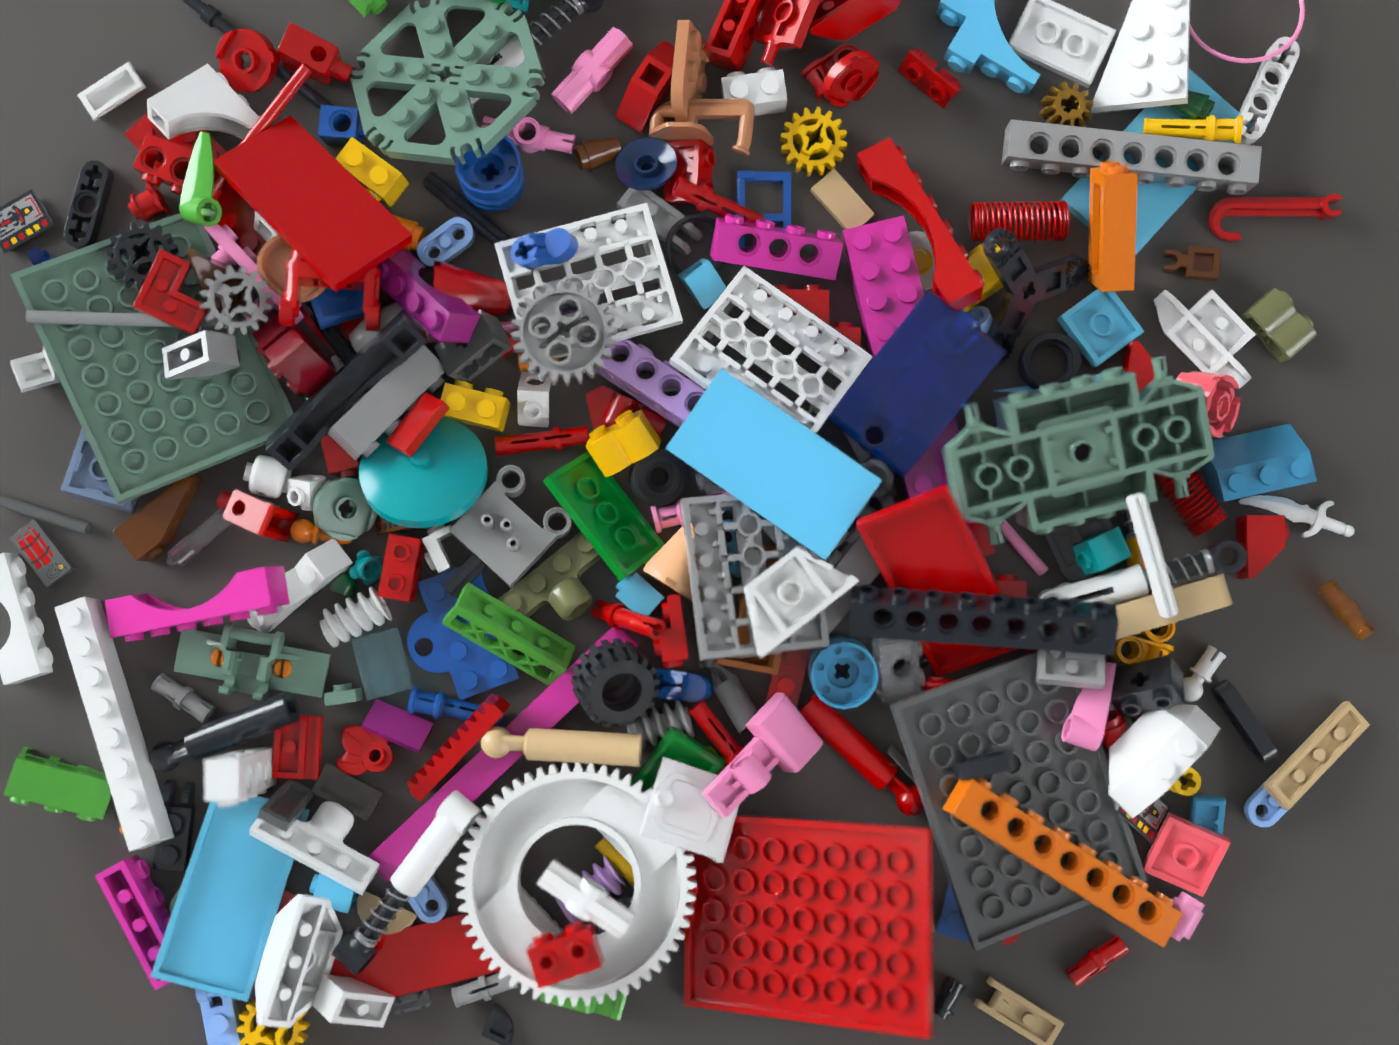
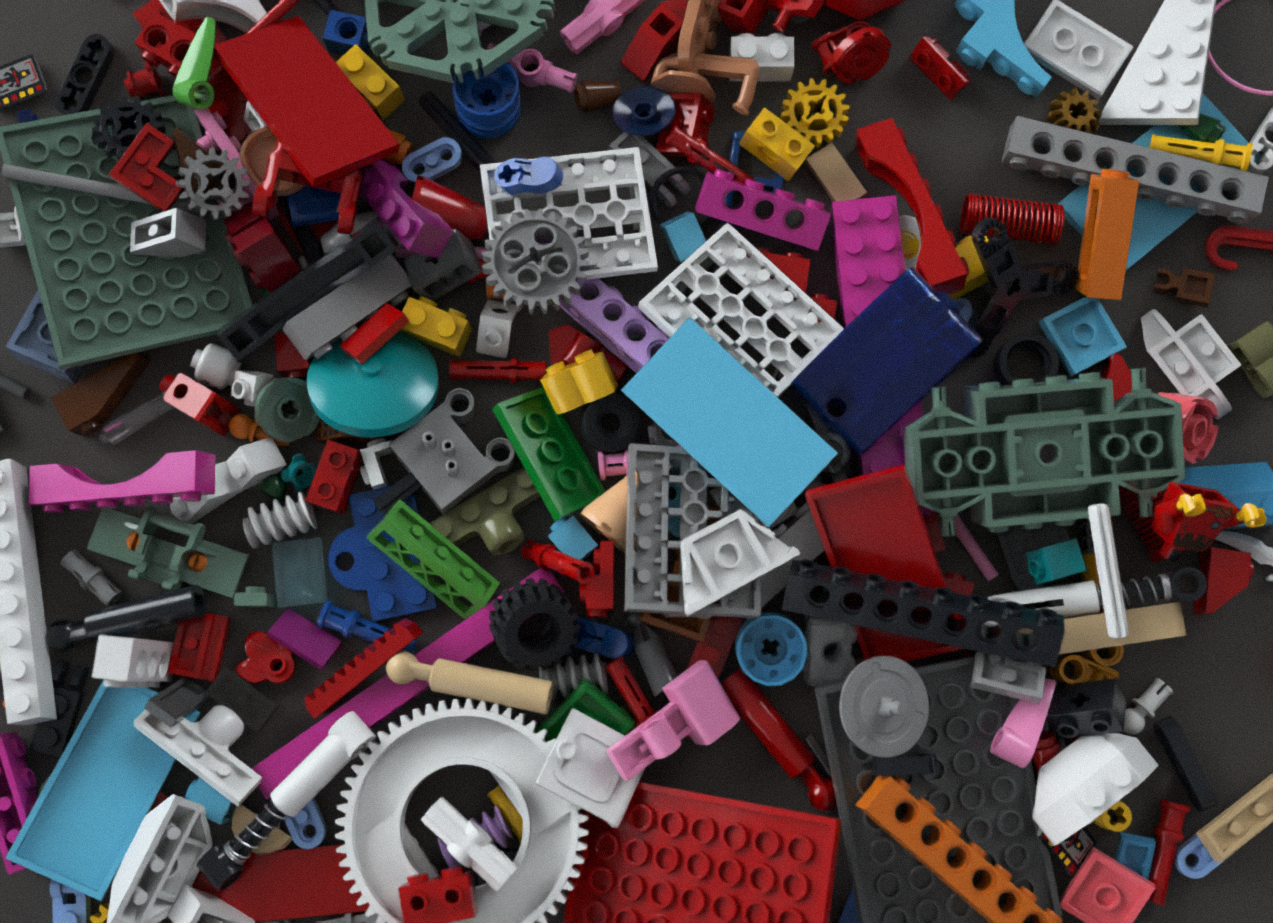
camera: 10 degrees right, 5 degrees down
(780, 179) = (776, 144): none -> yellow brick
(957, 714) = (884, 706): none -> light grey piece
(1228, 490) = (1195, 516): none -> red torso
(1236, 791) = (1168, 836): none -> red pin

